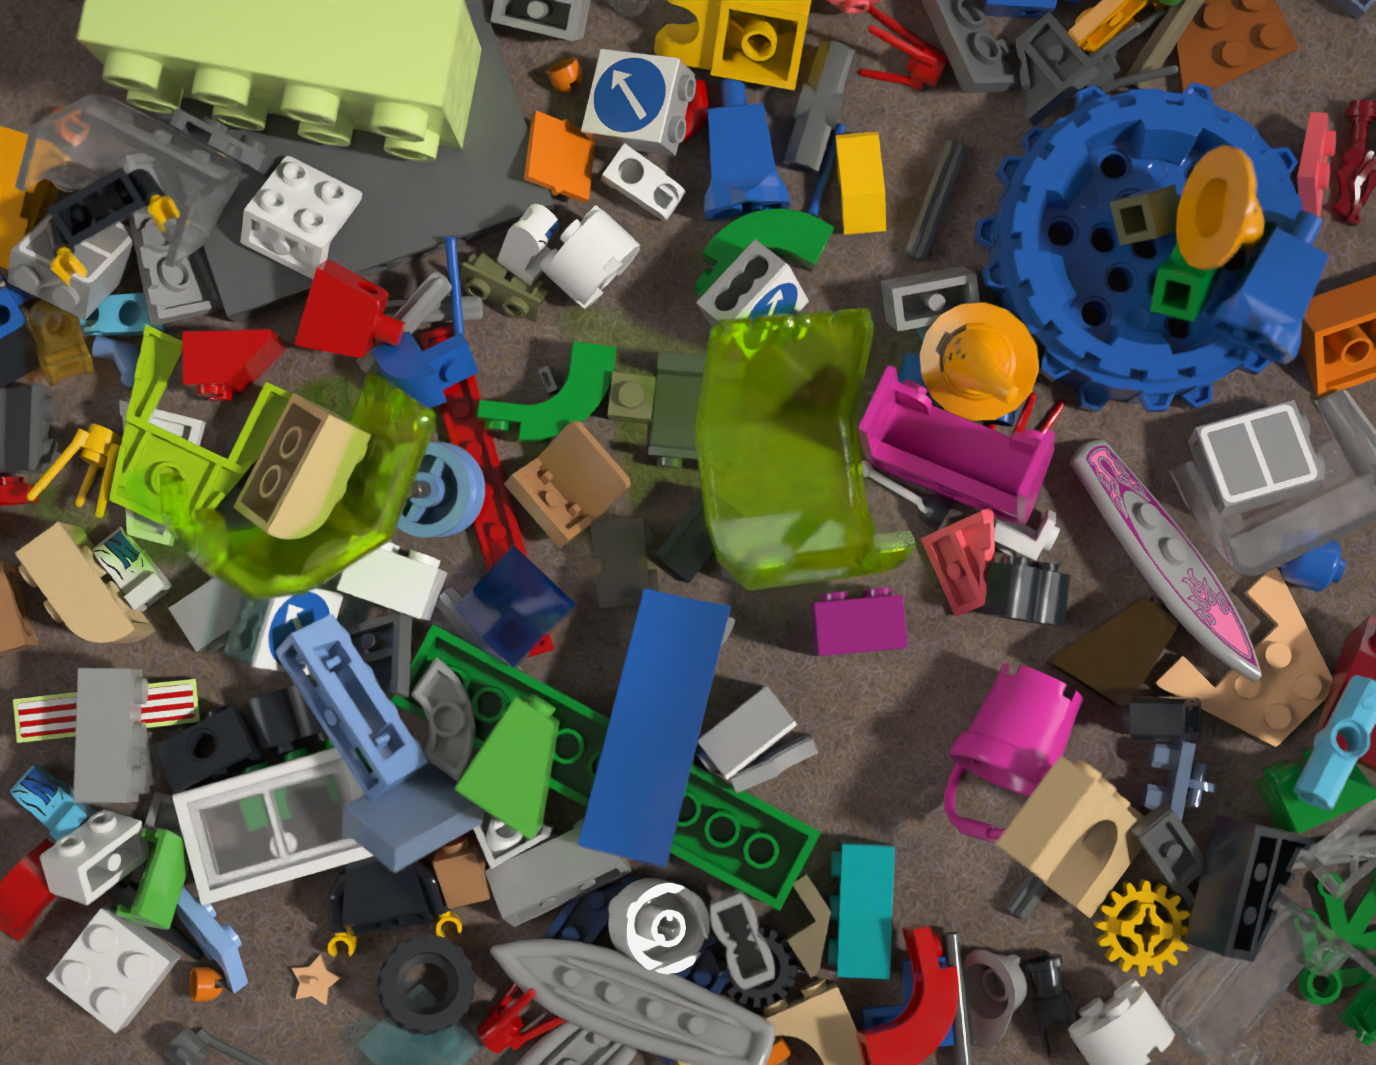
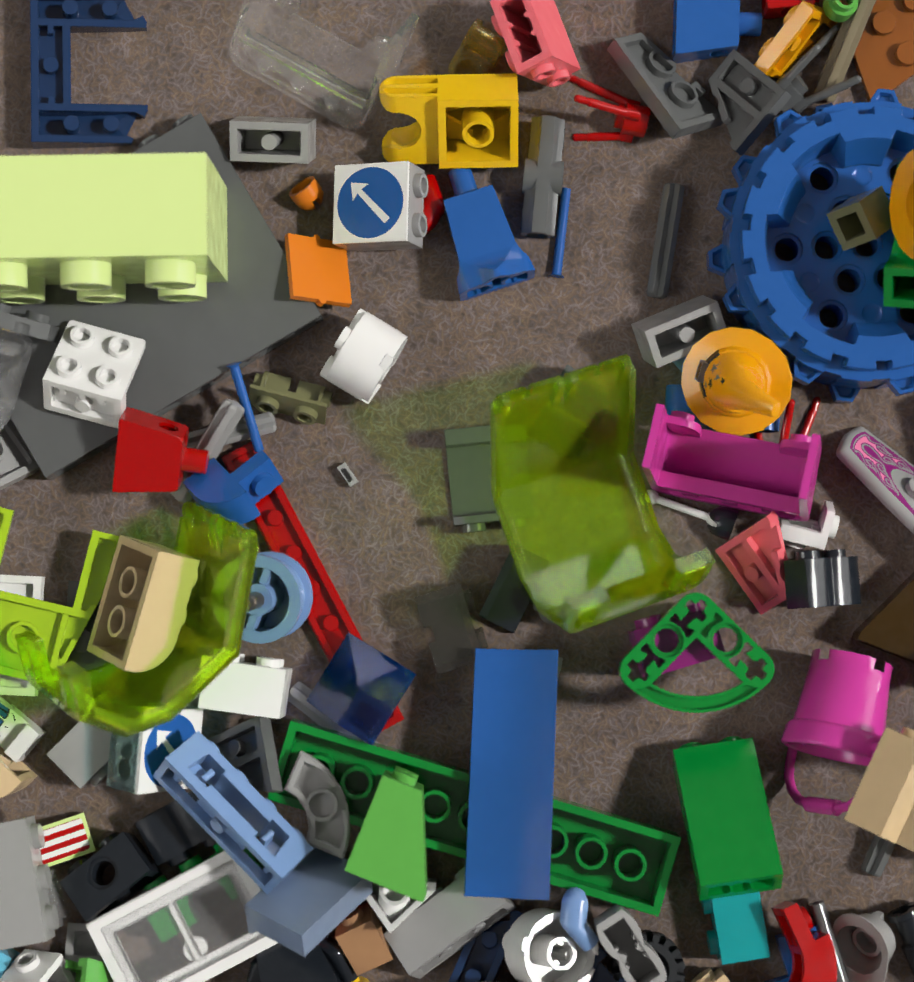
camera: 10 degrees left, 0 degrees up
(227, 360) = (53, 518): red slope -> none
(527, 243) = (305, 355): white leg -> none
(569, 484) = (387, 566): medium nougat bracket -> none
(585, 386) = (382, 477): green arch -> none
(631, 398) = (428, 476): olive brick -> none
(643, 183) = (398, 278): white leg -> none
(689, 894) = (574, 918): none -> medium blue arm
(744, 733) = (593, 761): light grey piece -> none
(753, 287) = (519, 357): light grey piece -> none
(774, 762) = (625, 782): light grey tile -> none
(782, 231) = (522, 299): green arch -> none
(810, 937) = (690, 932): dark tan slope -> none
(861, 182) = (595, 238): yellow slope -> none
(873, 822) = (726, 818): none -> green brick
(888, 618) = (704, 632): none -> green beam

